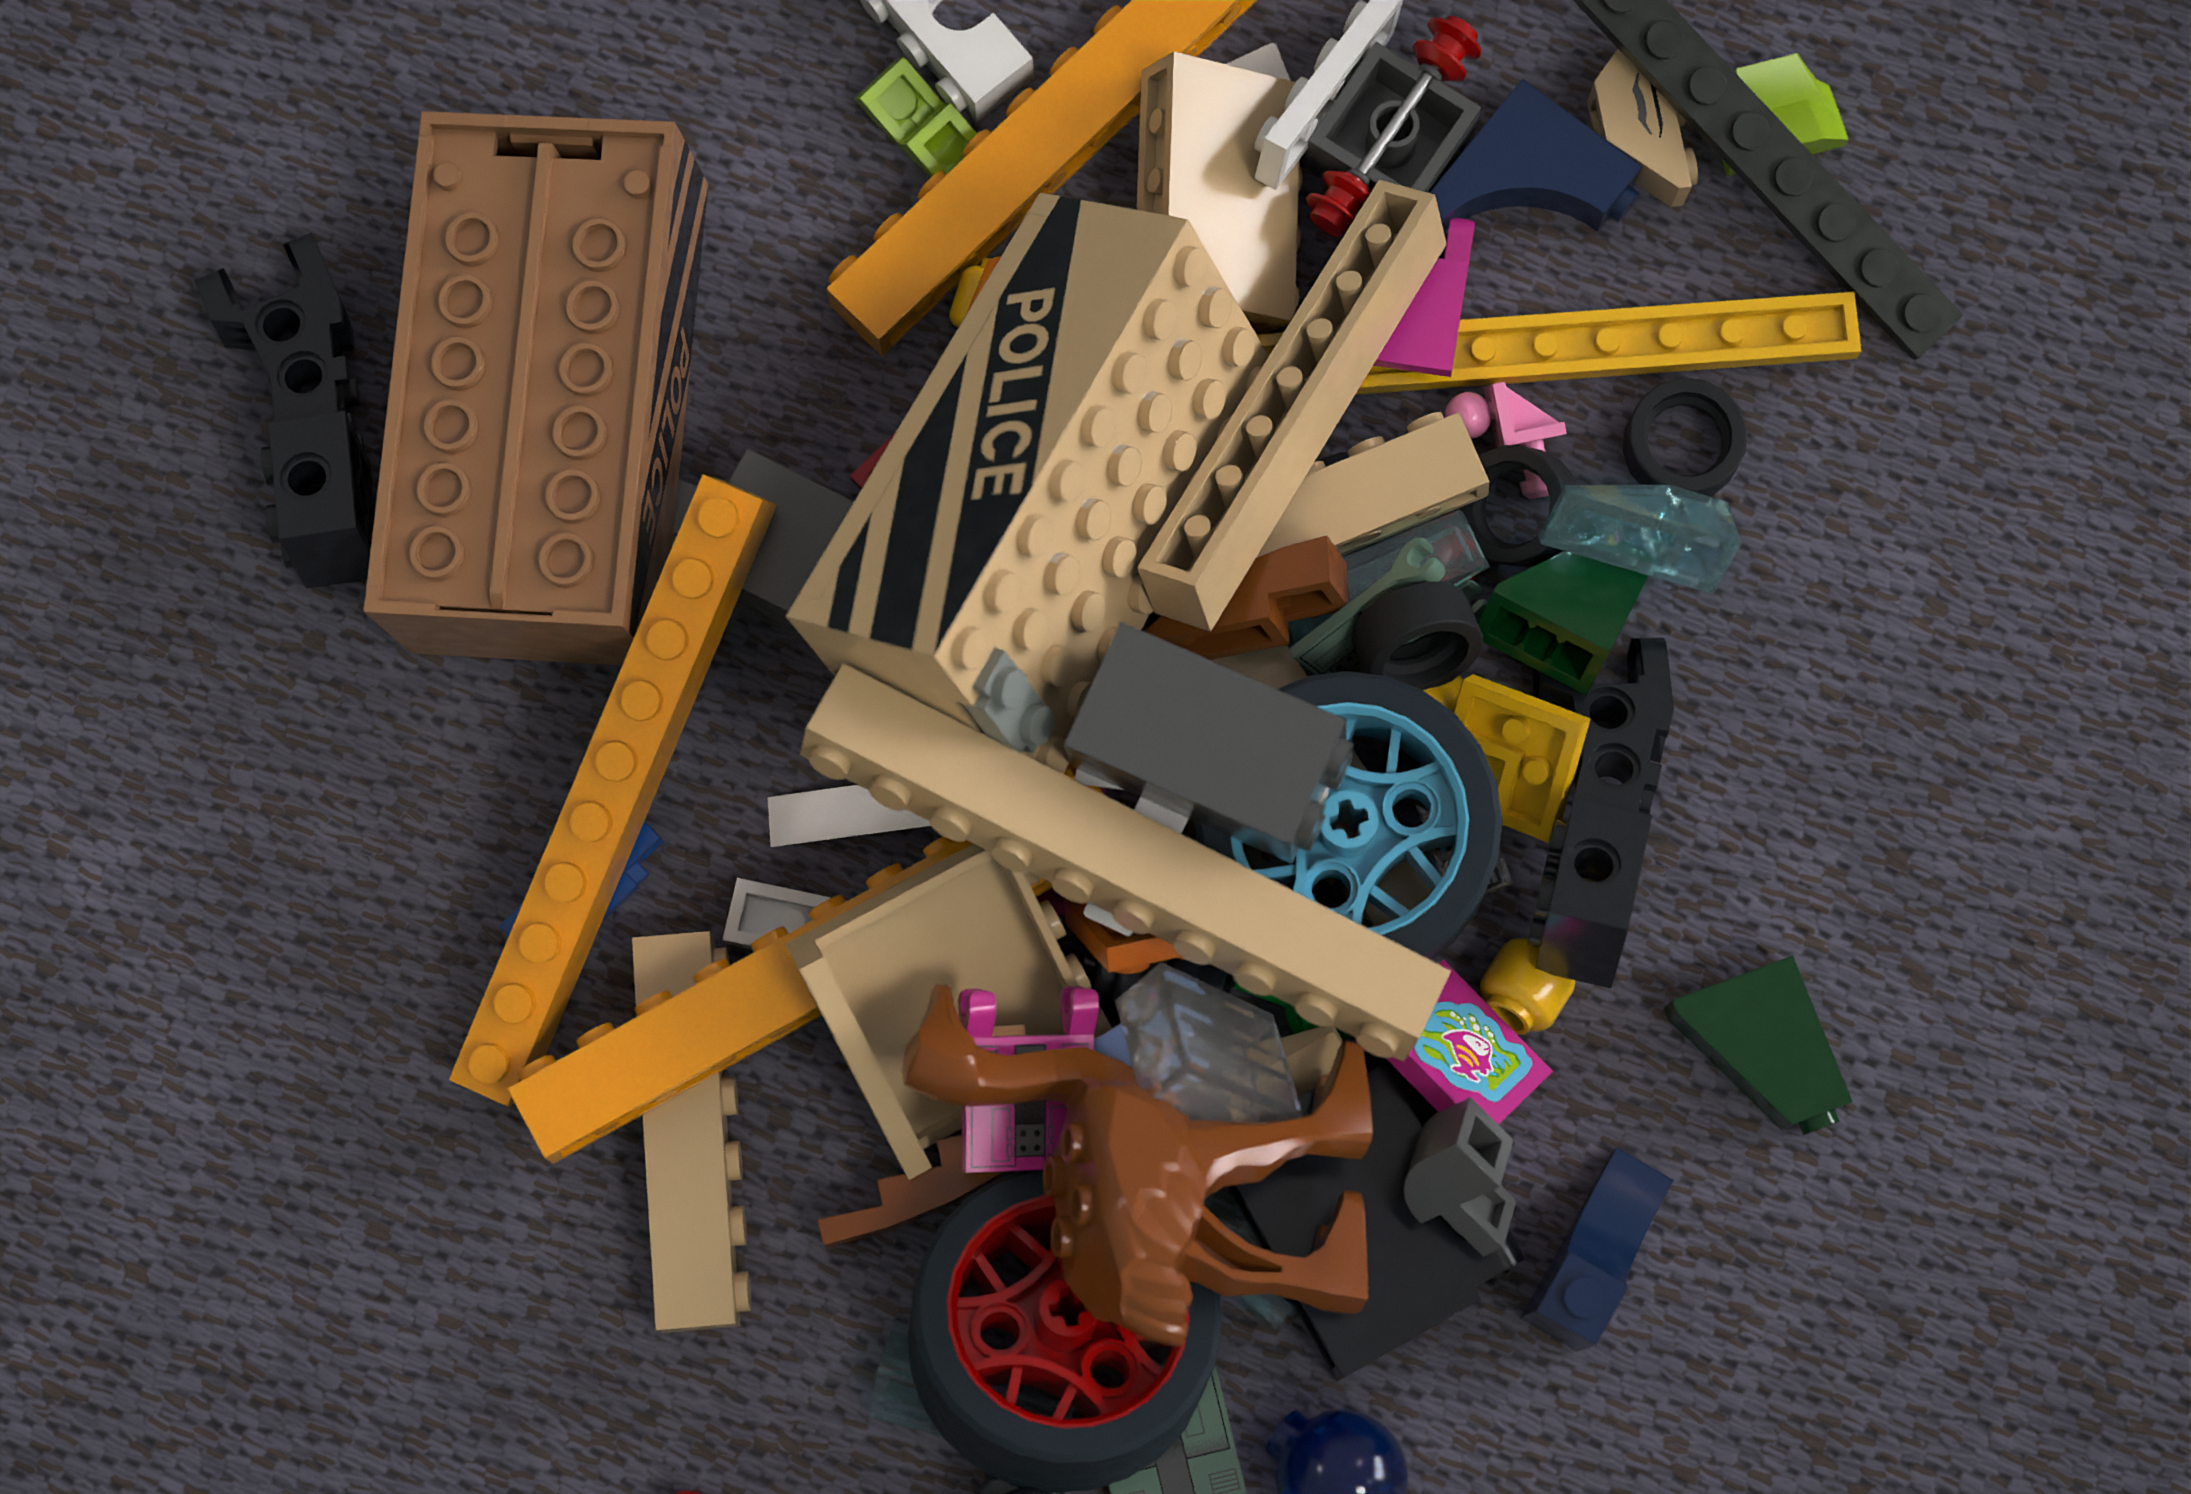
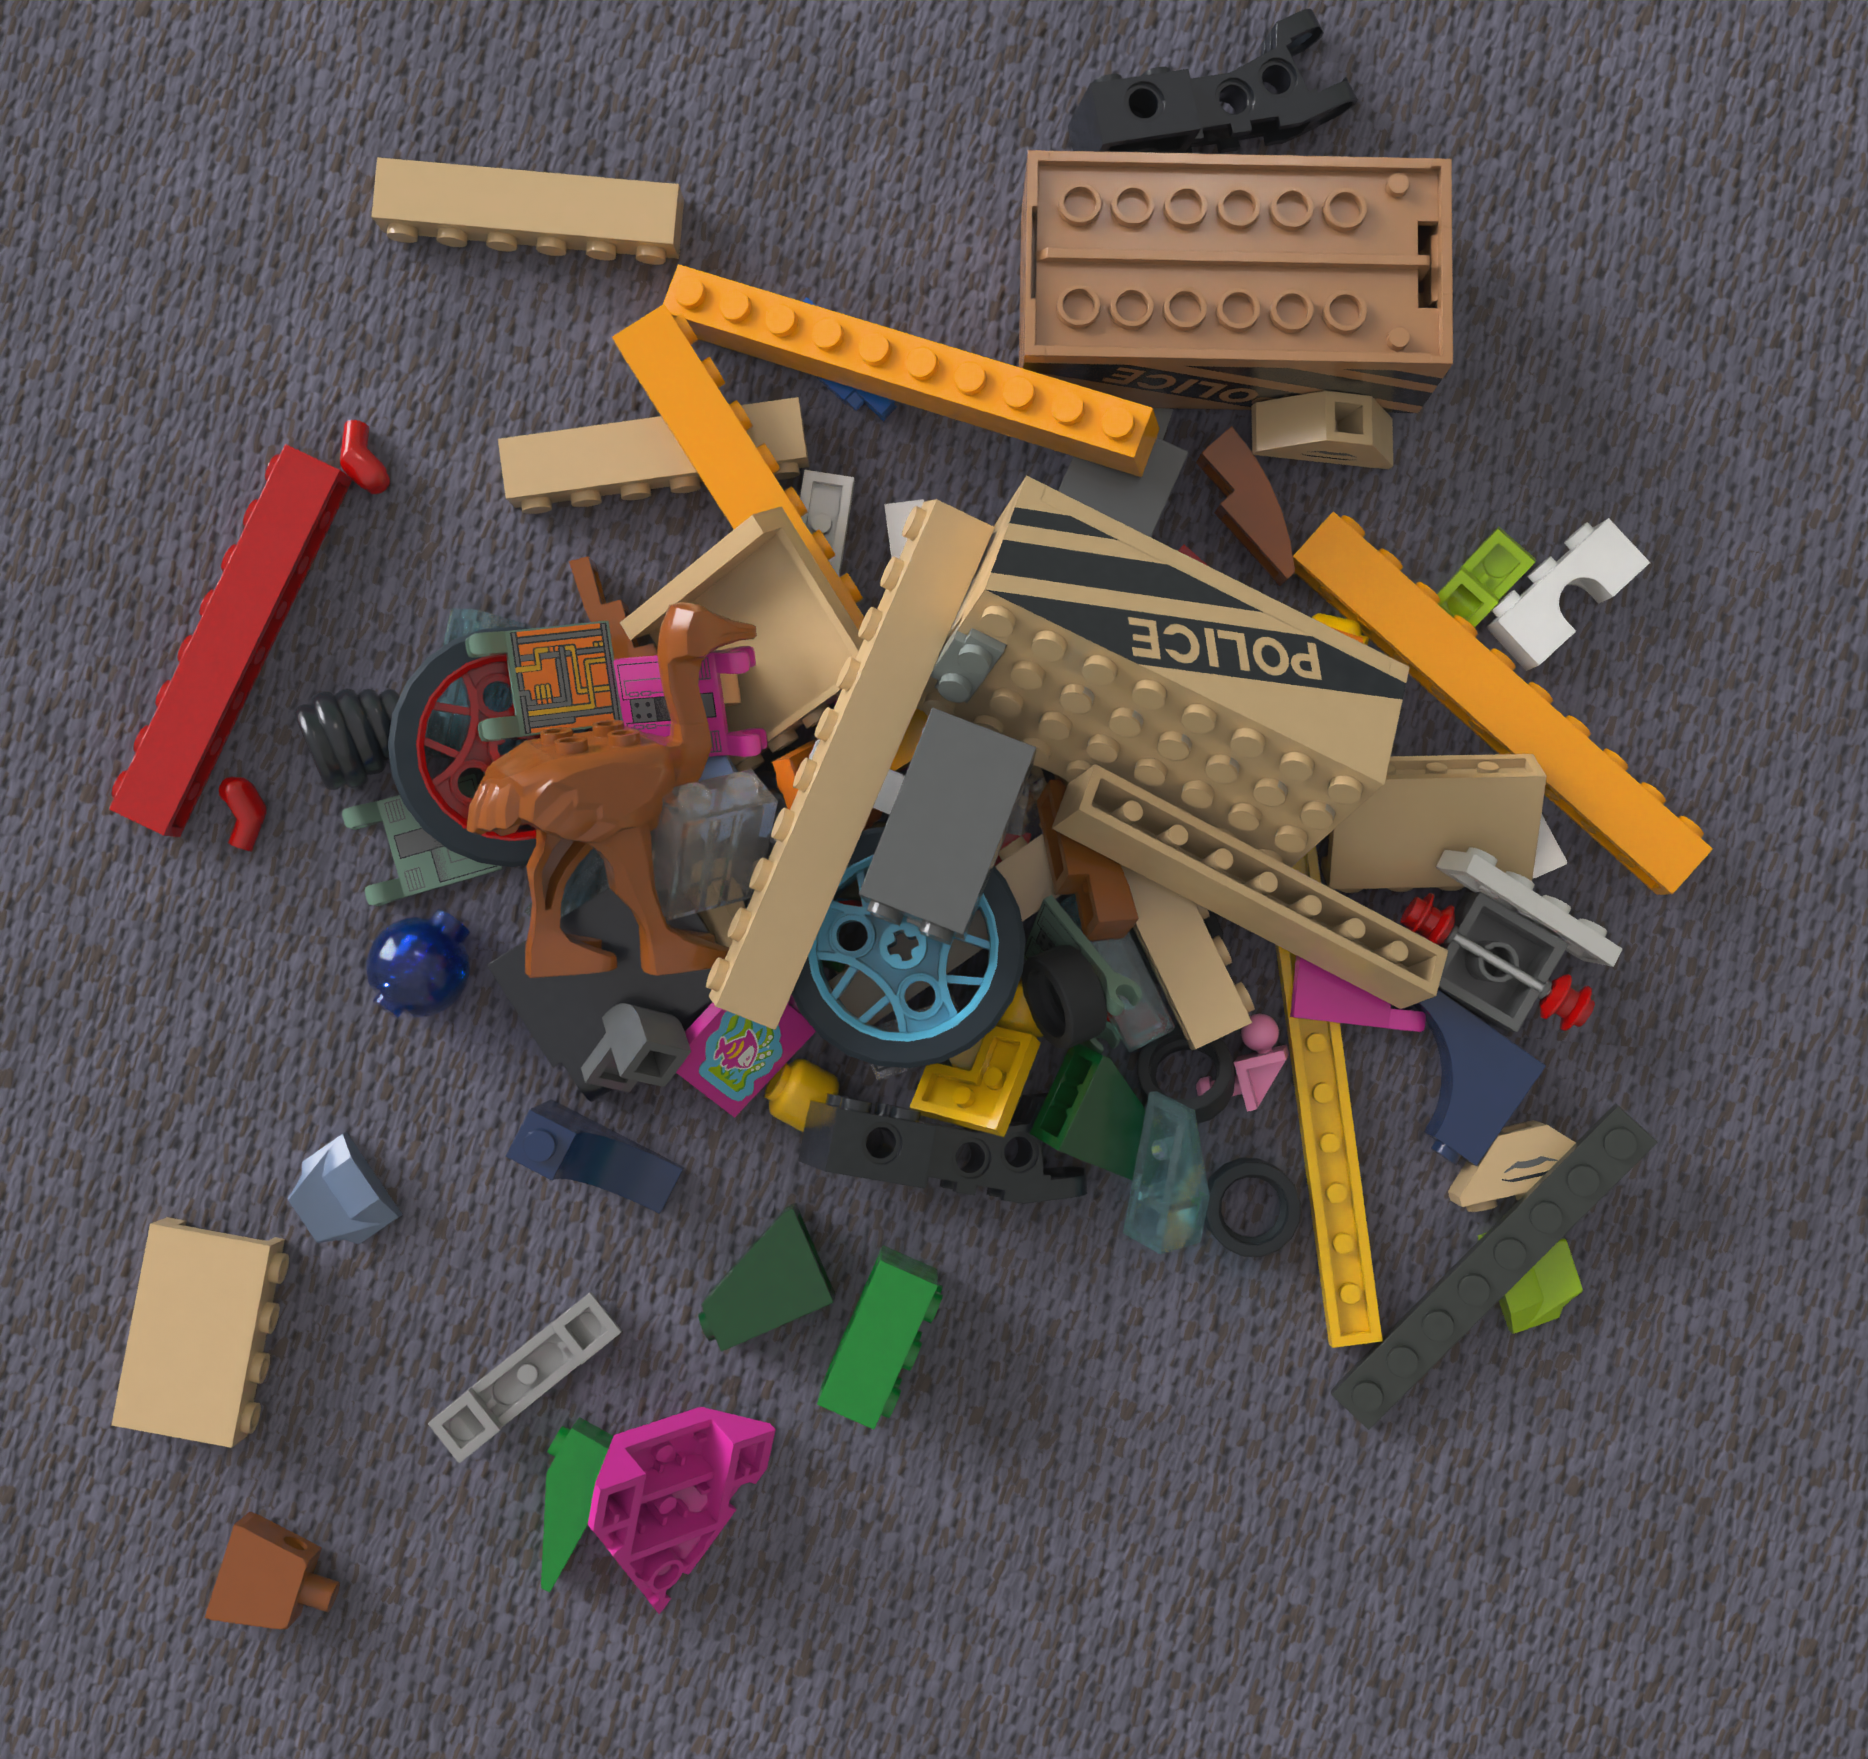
camera: 85 degrees right, 10 degrees up
(352, 1281) = (528, 209): none -> tan brick
(723, 296) = (1324, 429): none -> tan slope
(808, 390) = (1250, 505): none -> dark orange slope
(982, 1245) = (555, 678): none -> flag
(1838, 898) = (881, 1338): none -> green brick
(1878, 1365) = (524, 1377): none -> light grey slope
(2018, 1300) = (570, 1493): none -> green slope
(2027, 1173) = (670, 1492): none -> dark pink wedge

